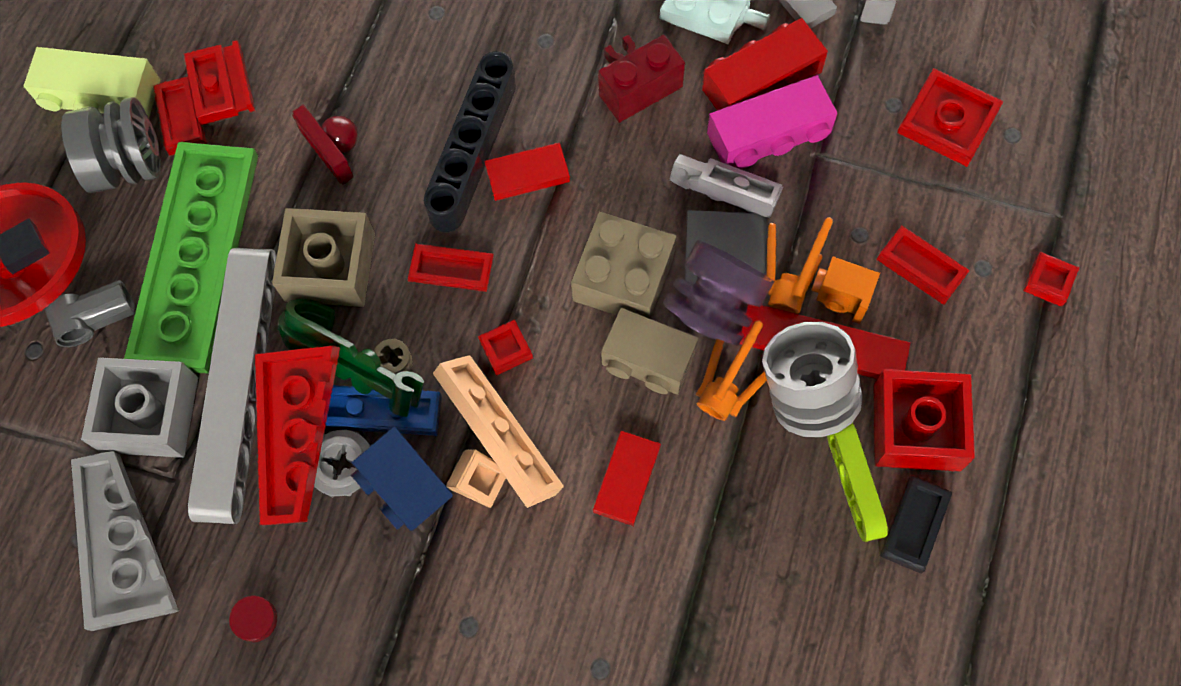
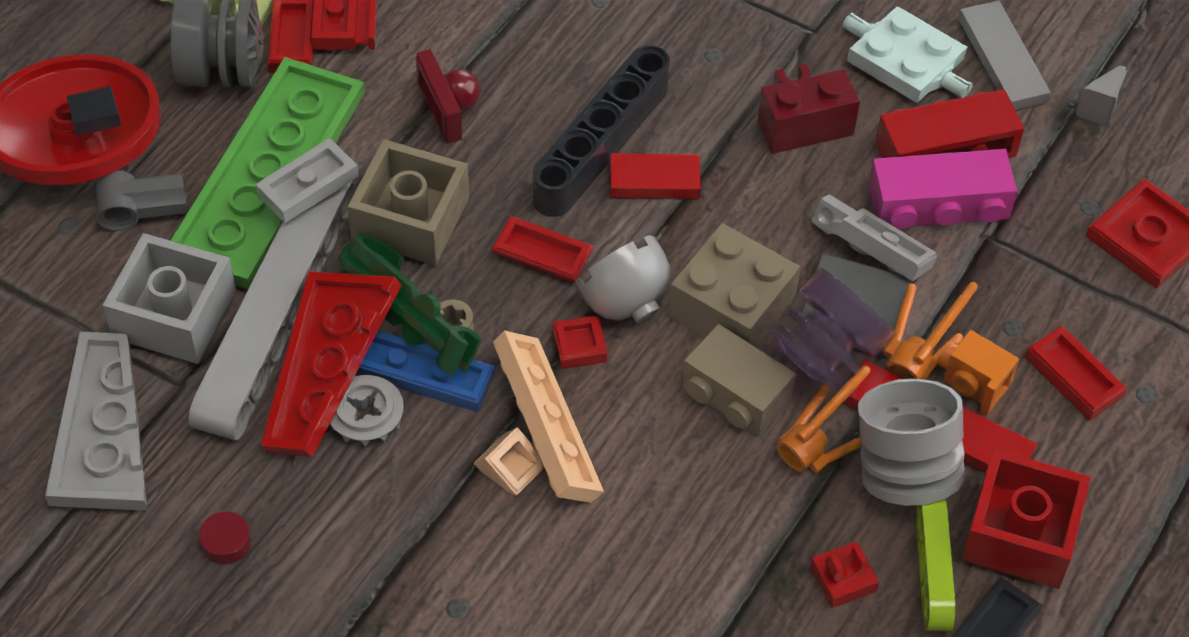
camera: 10 degrees right, 15 degrees down
(229, 265) = (307, 180): none -> light grey plate
(401, 480) = (427, 426): dark blue brick -> none
(534, 286) = (627, 282): none -> light grey cylinder
(627, 478) = (676, 502): red tile -> none
(783, 507) = (844, 574): none -> red tile

